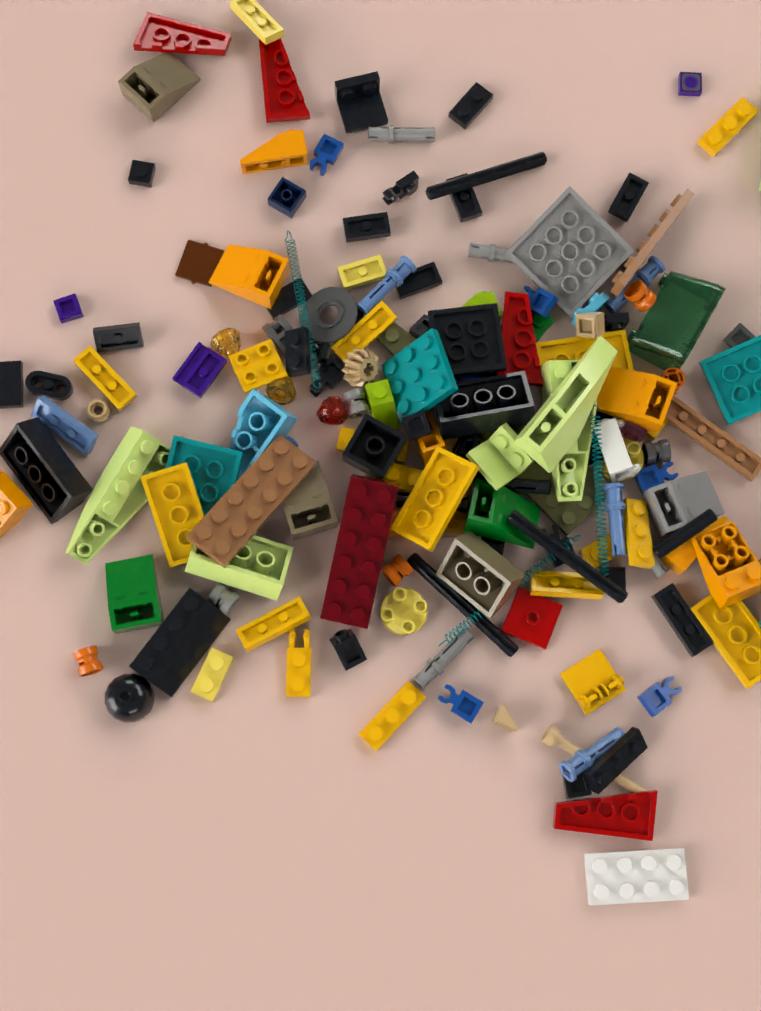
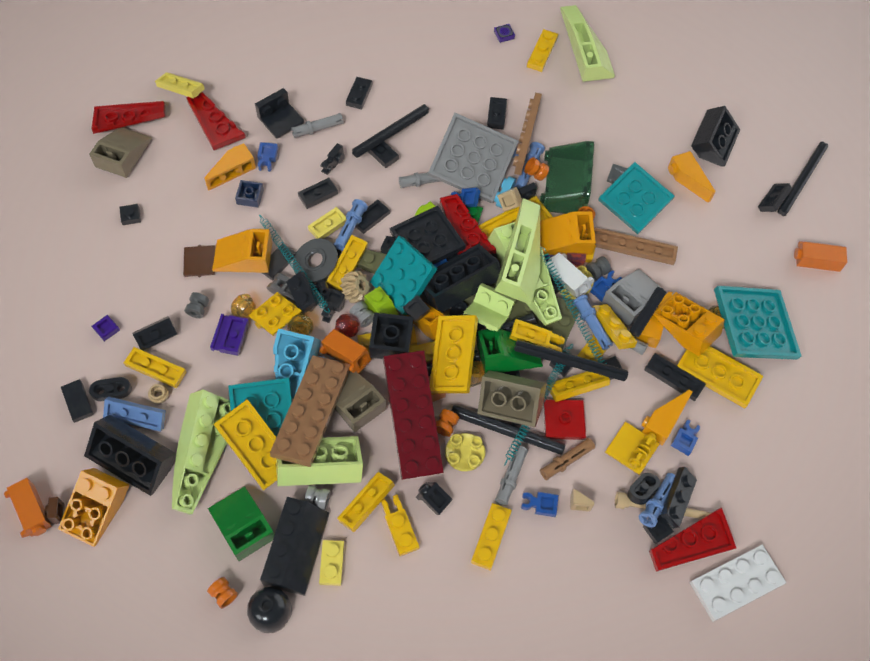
camera: 20 degrees left, 15 degrees down
(176, 320) = (196, 305): none -> dark grey wheel
(318, 442) = (345, 351): none -> orange brick
(512, 665) = (560, 463): none -> medium nougat pin
(540, 511) = (535, 335): none -> yellow hinge
(580, 735) = (643, 488): none -> black plate
(643, 665) = (665, 417): none -> light orange slope

